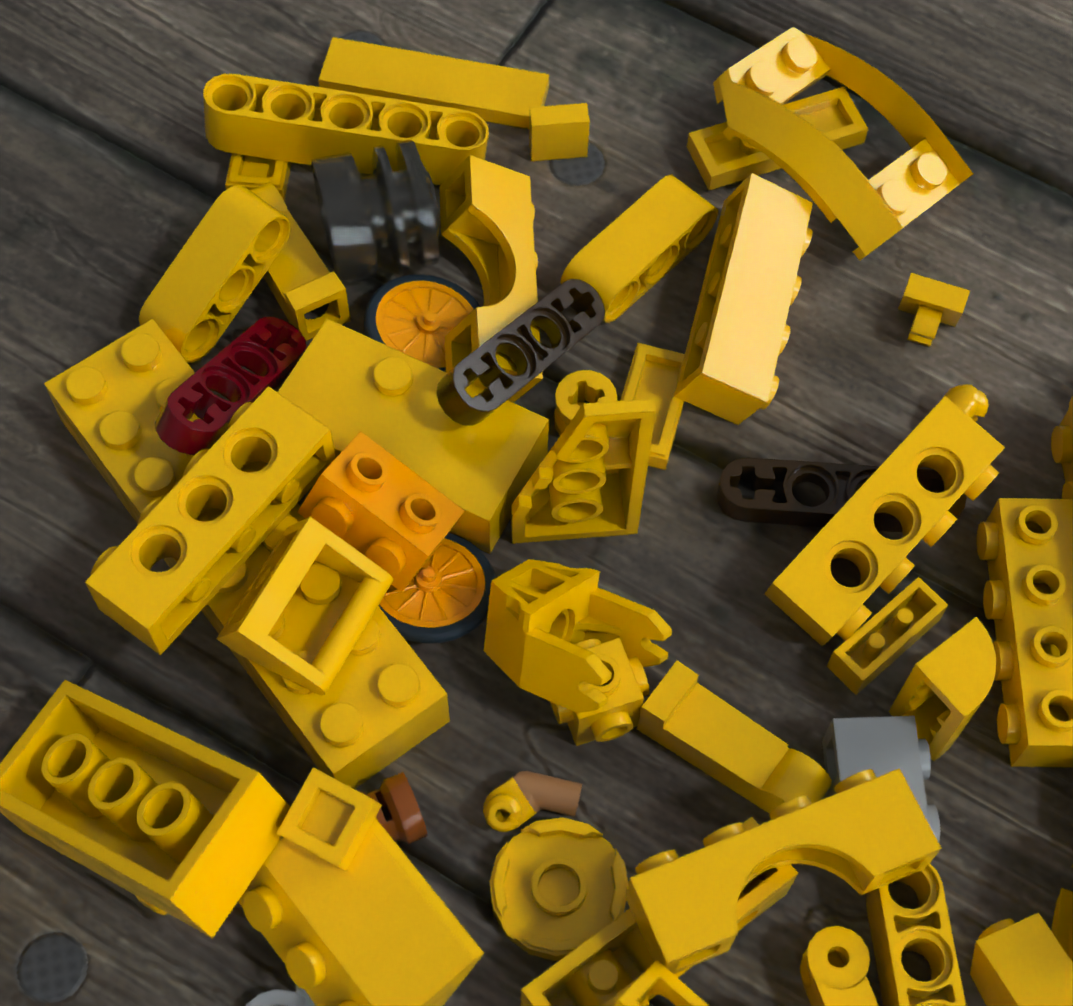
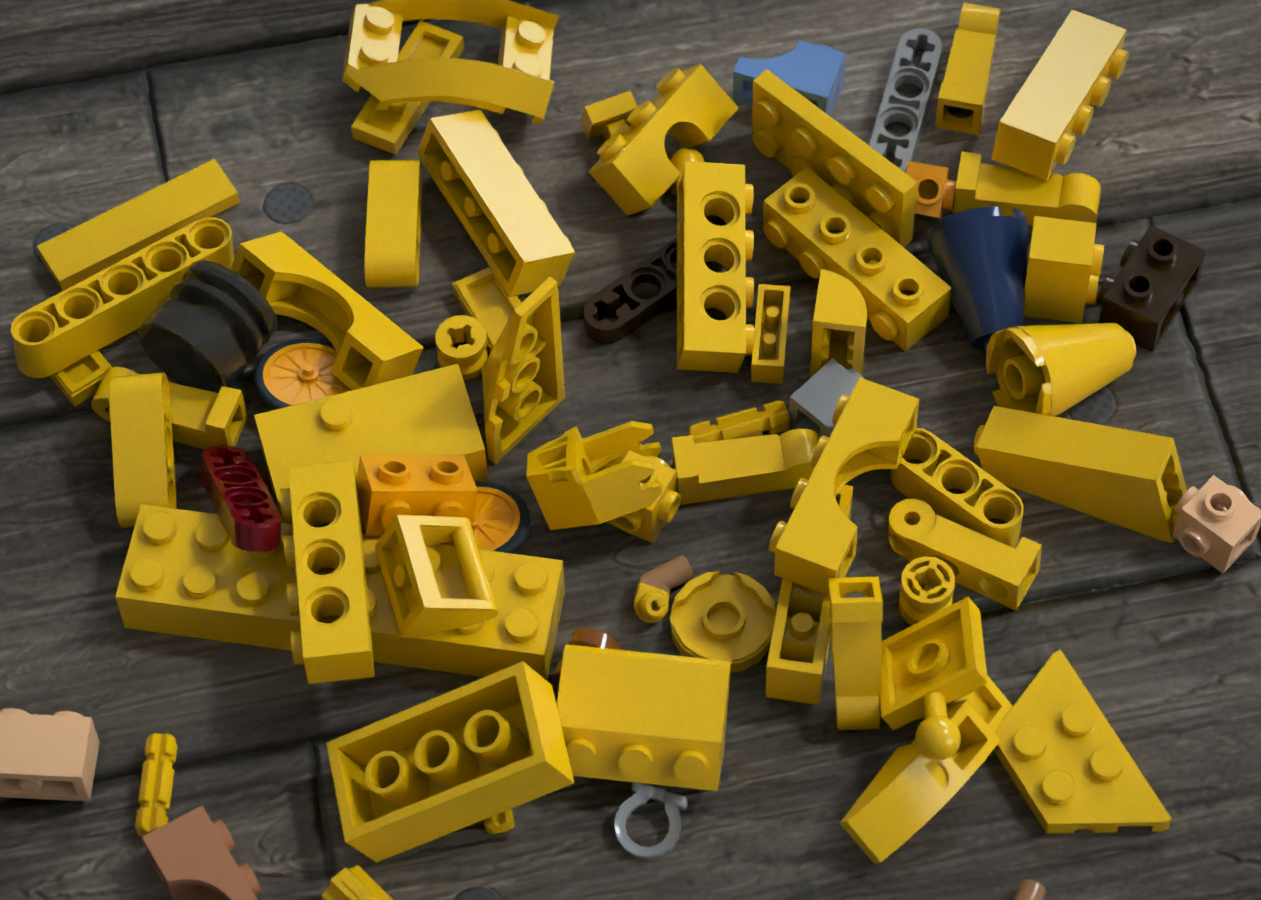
camera: 40 degrees left, 5 degrees down
(329, 819) = (577, 665): yellow tile -> none
(524, 350) = (401, 336): dark brown beam -> none
(559, 131) = (263, 190): yellow tile -> none
(768, 703) = (743, 424): none -> yellow axle
(908, 364) = (635, 163): none -> yellow arch

